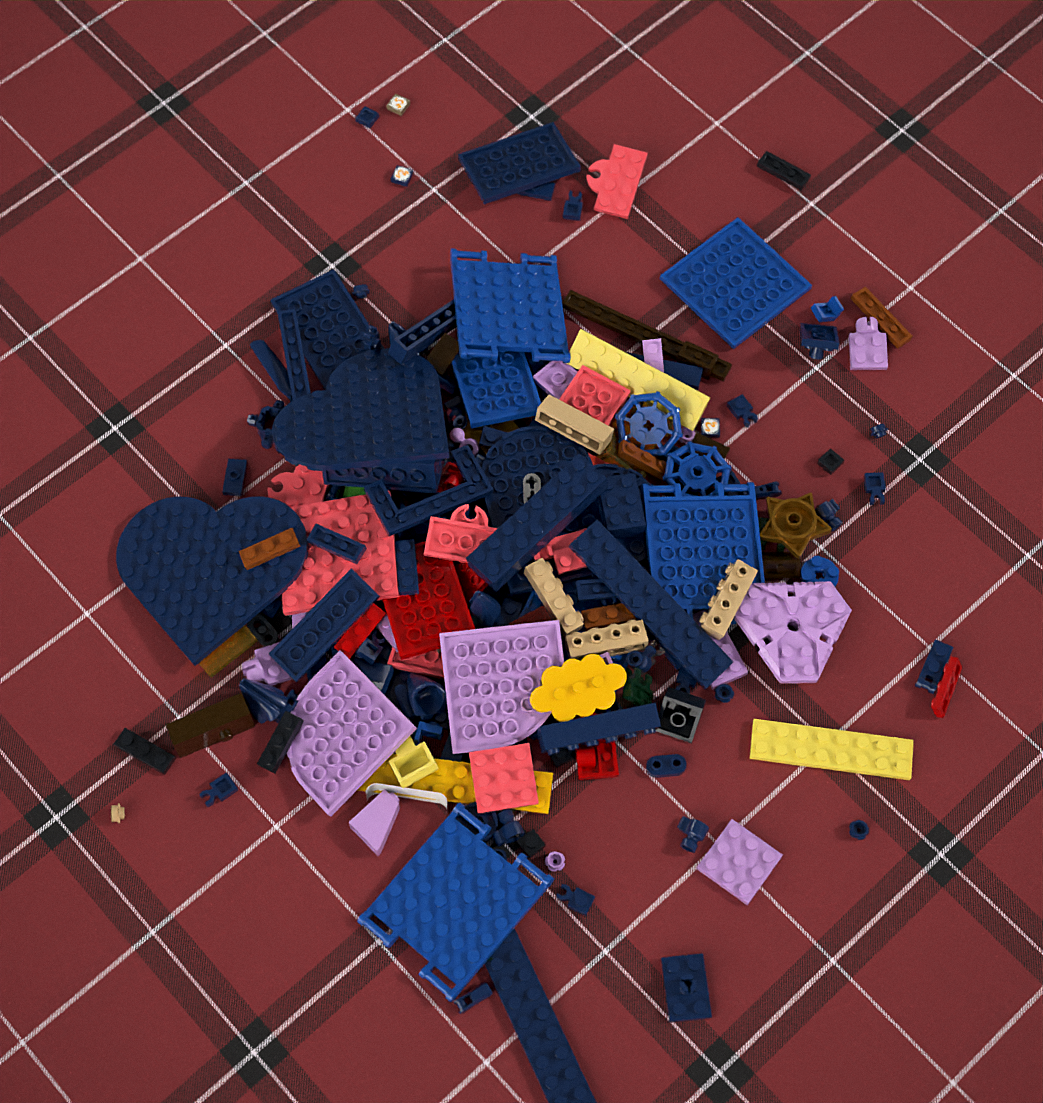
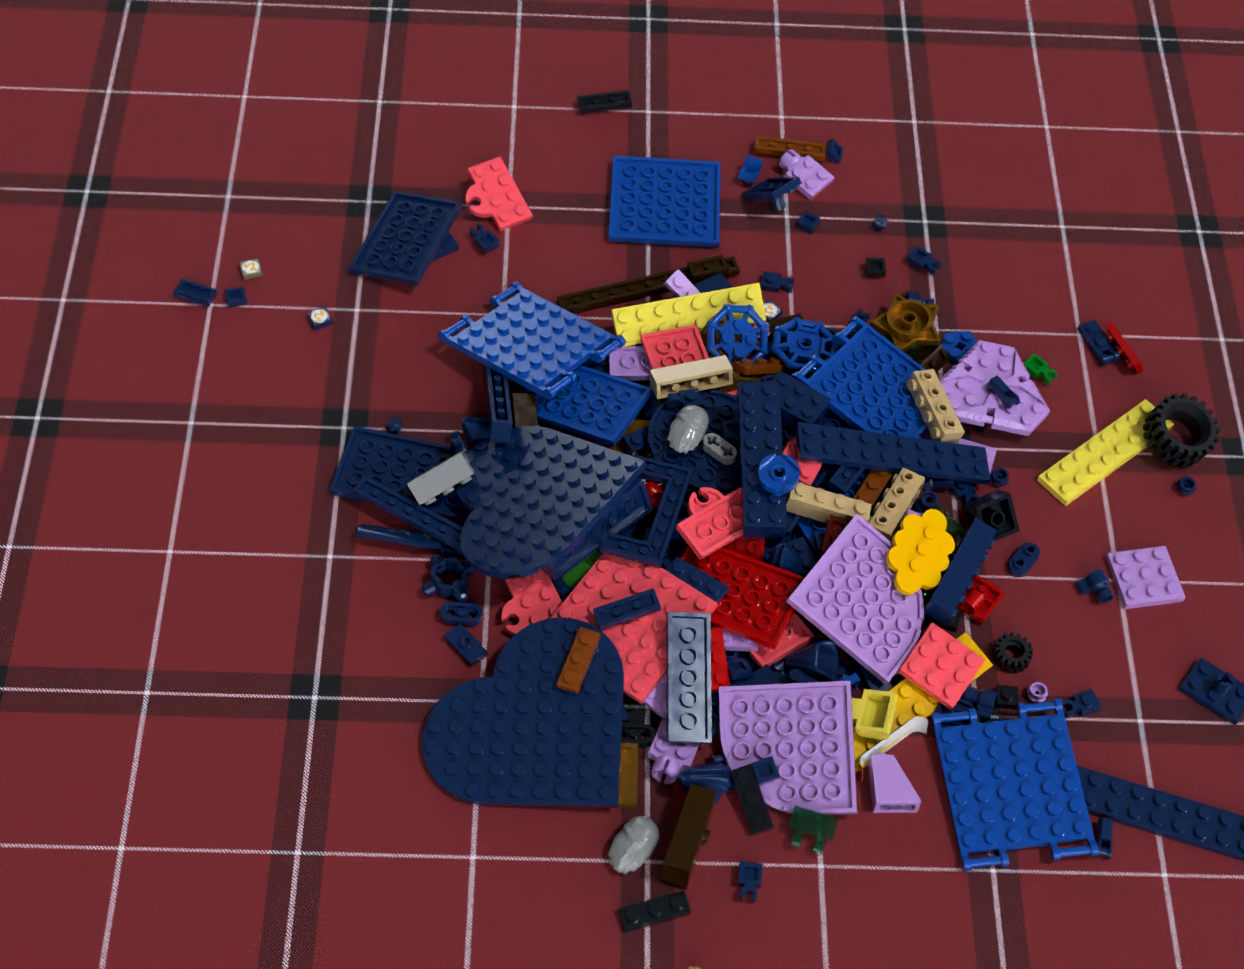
camera: 50 degrees left, 10 degrees down
(178, 698) = (633, 844): none -> light grey hair
(255, 455) = (461, 613): none -> dark blue plate
(297, 795) = (813, 823): none -> clear green plate
(304, 731) = (765, 770): none -> dark blue plate
(332, 351) = (441, 478): none -> light grey slope
(344, 93) = (195, 292): none -> dark blue plate
(524, 458) = (688, 428): none -> light grey hair
(529, 551) = (774, 484): none -> blue plate
(552, 438) = (684, 398): none -> dark blue plate
(571, 831) = (1008, 662): none -> black tyre
(792, 632) = (1005, 394): none -> dark blue bar
(825, 385) = (808, 222): none -> dark blue tile
(858, 641) = (1038, 367): none -> green plate
(912, 347) = (834, 151): none -> dark blue tile
(926, 786) = (1194, 417): none -> black tyre

